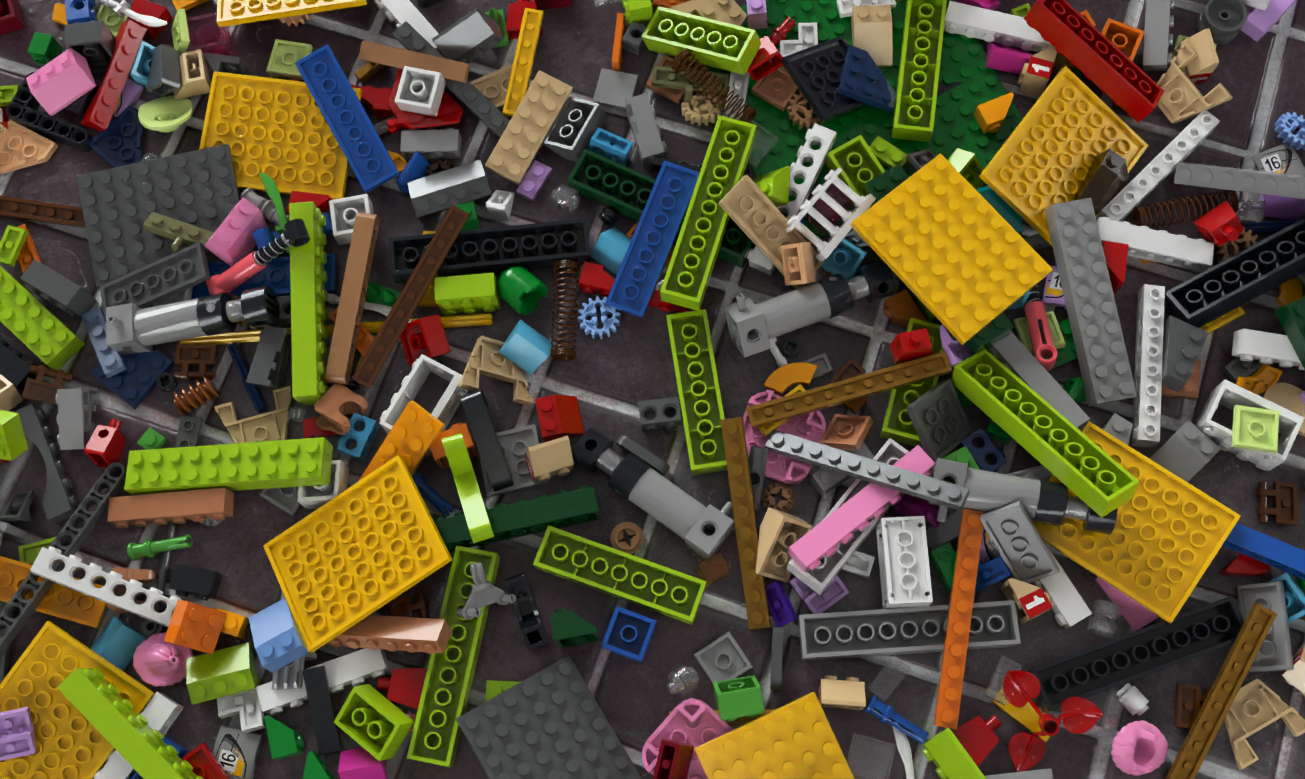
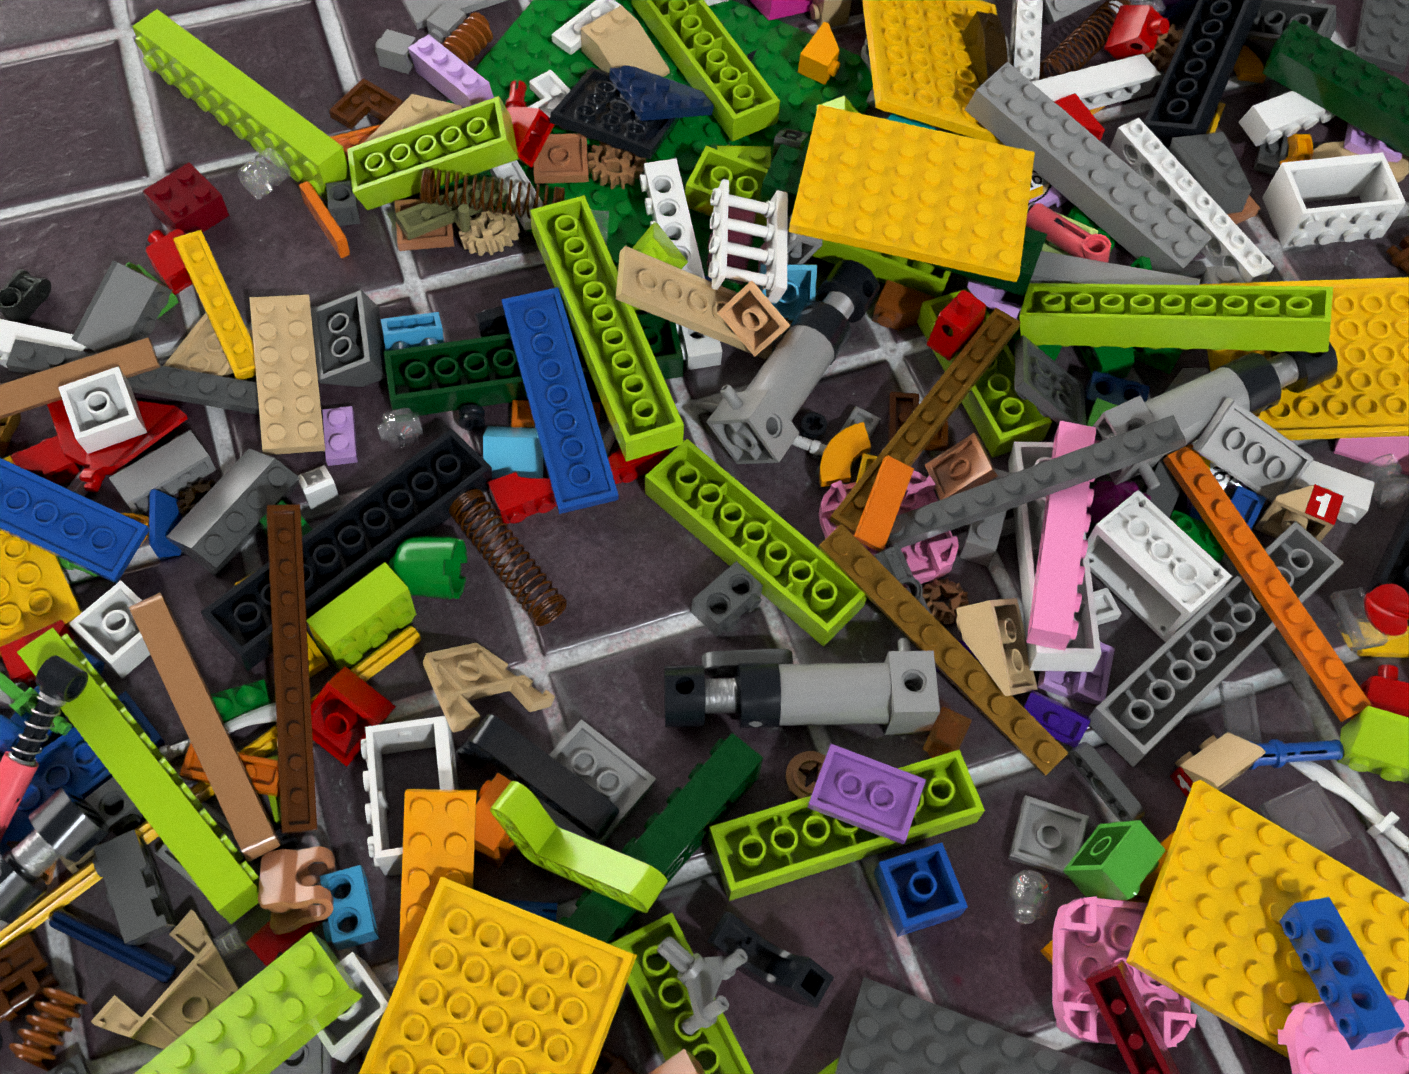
camera: 50 degrees left, 10 degrees down
(526, 347) = (495, 634): medium azure slope -> none
(549, 459) = (643, 744): tan slope -> none
(559, 417) = (604, 692): red slope -> none
(572, 629) = (850, 931): dark green slope -> none
(592, 325) = (538, 537): light blue gear -> none
(614, 88) = (362, 270): light grey tile -> none
(636, 567) = (867, 793): none -> medium lavender plate
(644, 128) = (435, 288): light grey wedge -> none
(778, 421) = (883, 503): none -> orange tile
(1186, 451) = (1301, 256): light grey slope -> none
(1255, 429) = (1354, 189): yellowish green tile -> none

